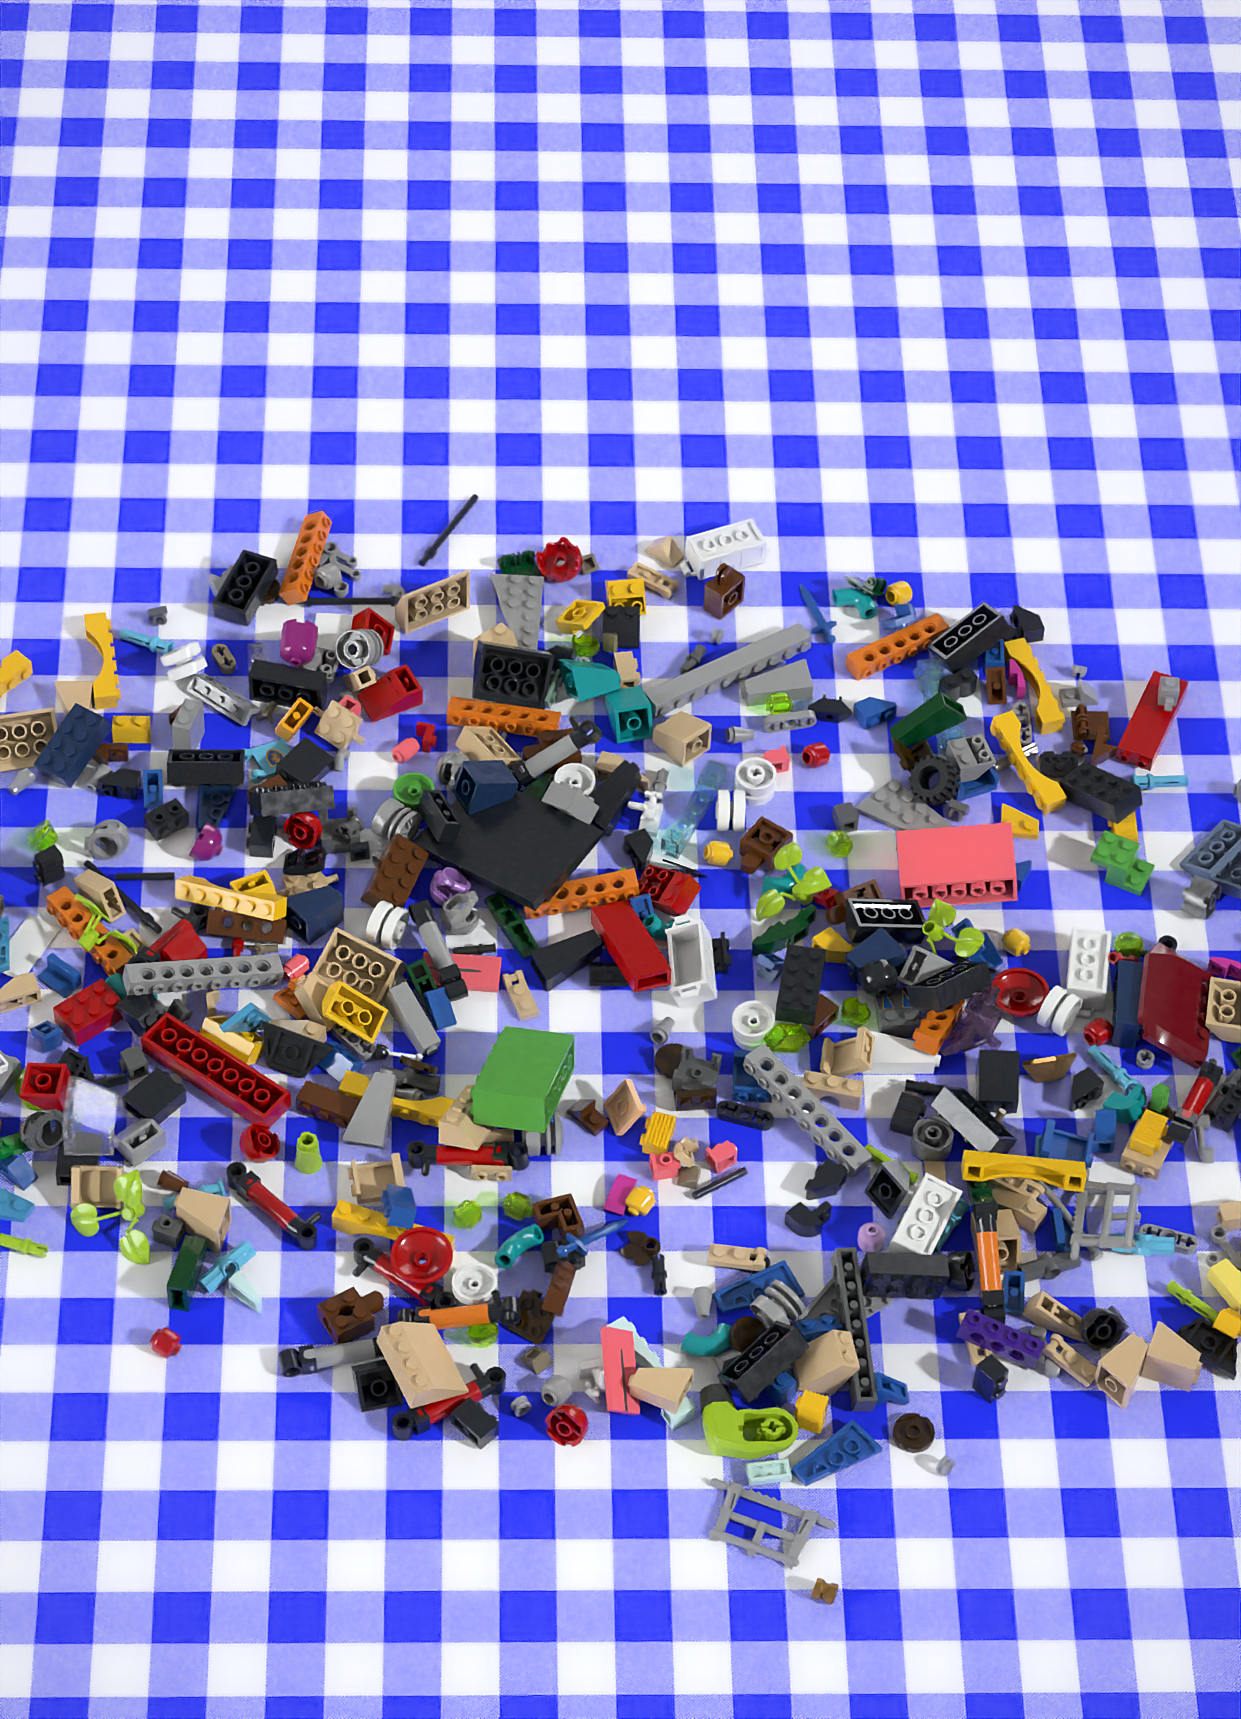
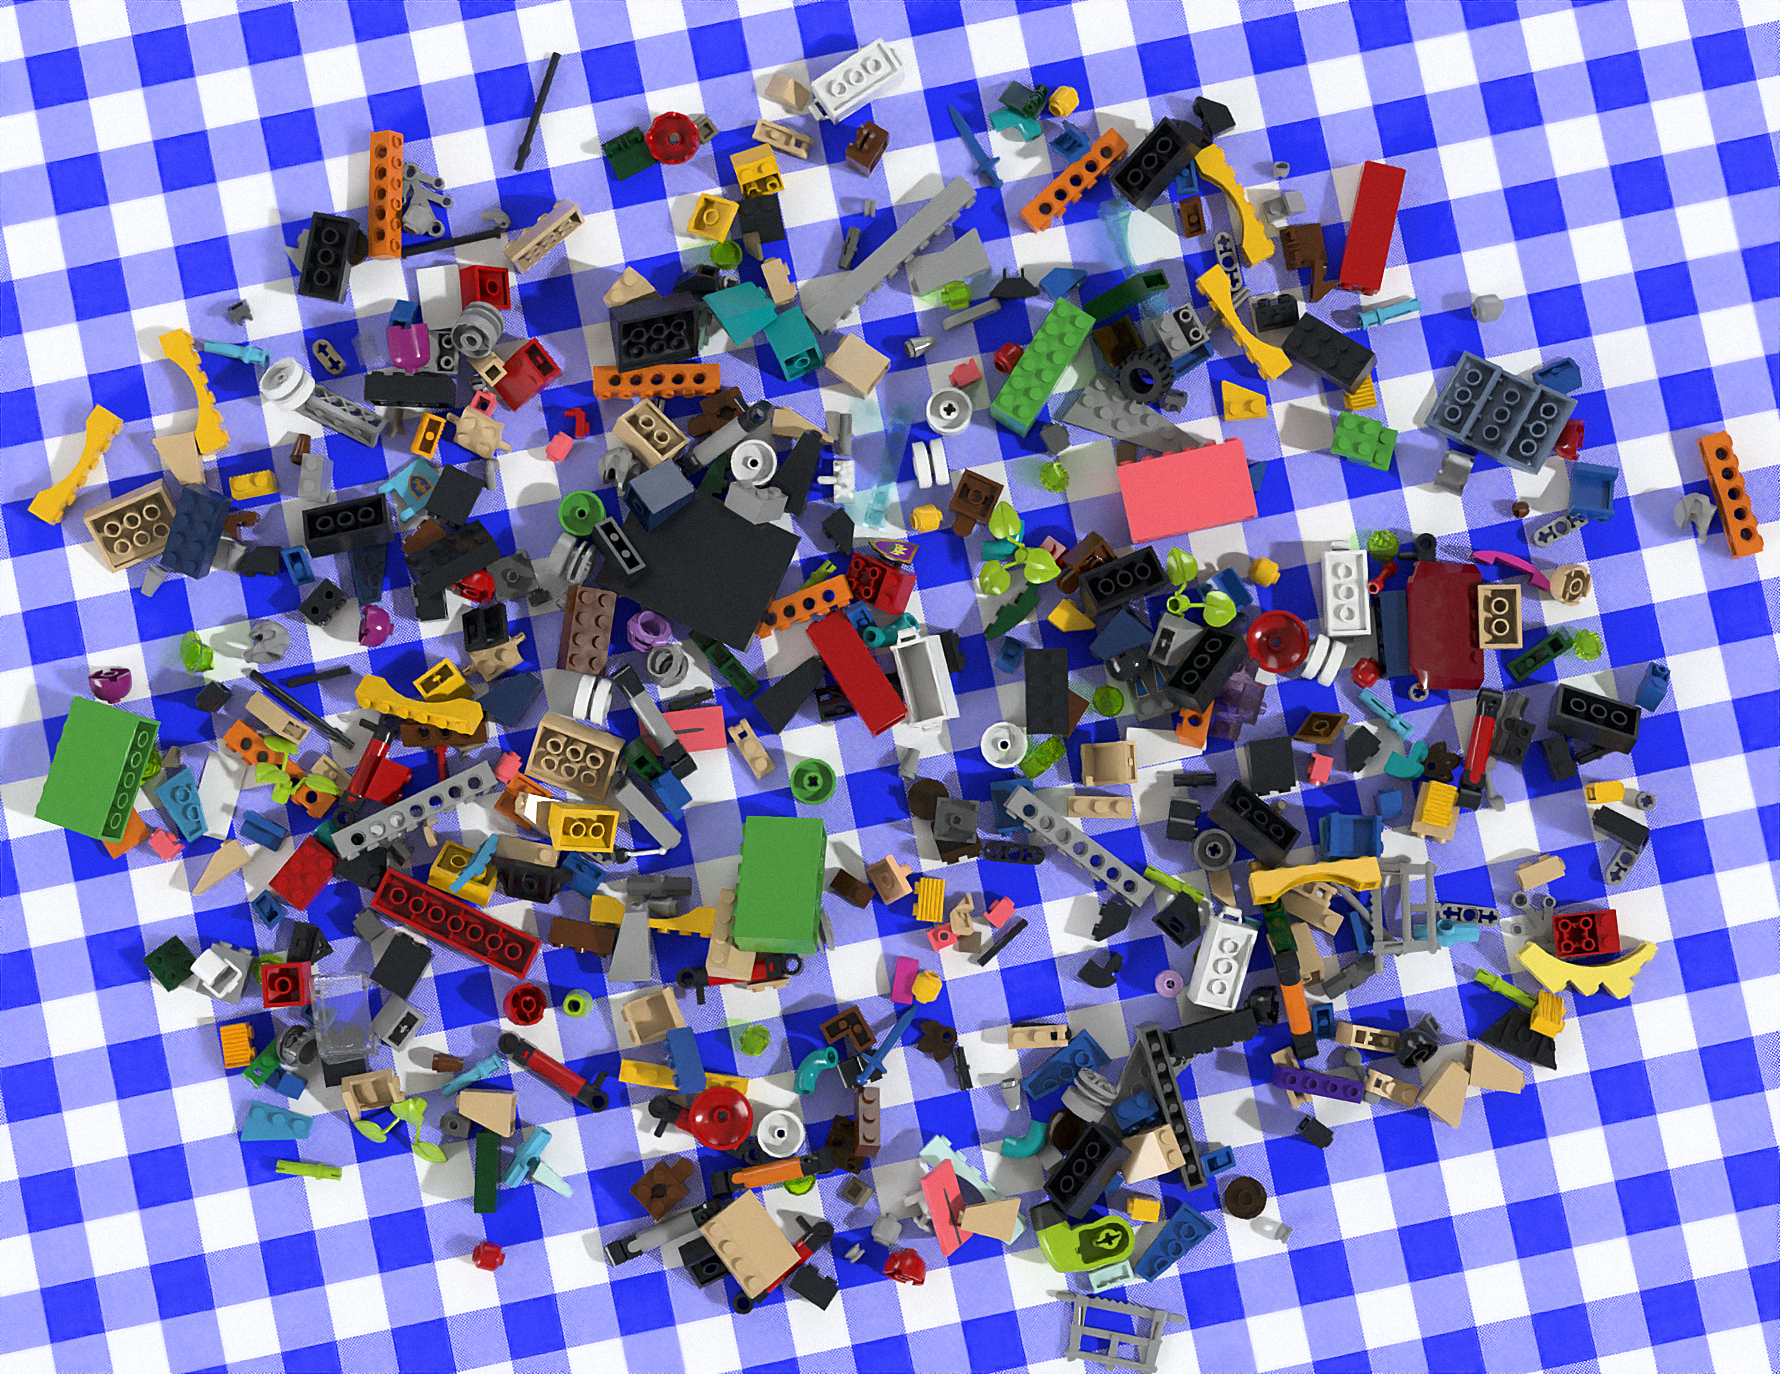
camera: 10 degrees left, 35 degrees up
(112, 1081) = (348, 955): black axle -> none
(349, 828) = (525, 574): dark grey bush -> none
(417, 1064) = (665, 870): dark brown tile -> none
(517, 1206) = (804, 1020): clear neon green head -> none
(521, 605) = (642, 210): light grey wing -> none
(574, 1018) = (801, 778): none -> bright green wheel
(843, 754) = (1041, 367): none -> bright green brick
(959, 684) = (1145, 227): black brick -> none
(1016, 678) = (1211, 195): dark pink slope -> none
(1042, 1097) = (1318, 769): none -> coral brick
(1078, 748) = (1294, 285): reddish brown plate -> none
(1160, 1097) = (1443, 752): bright green piece -> none
(1168, 692) = (1387, 199): light grey brick -> none

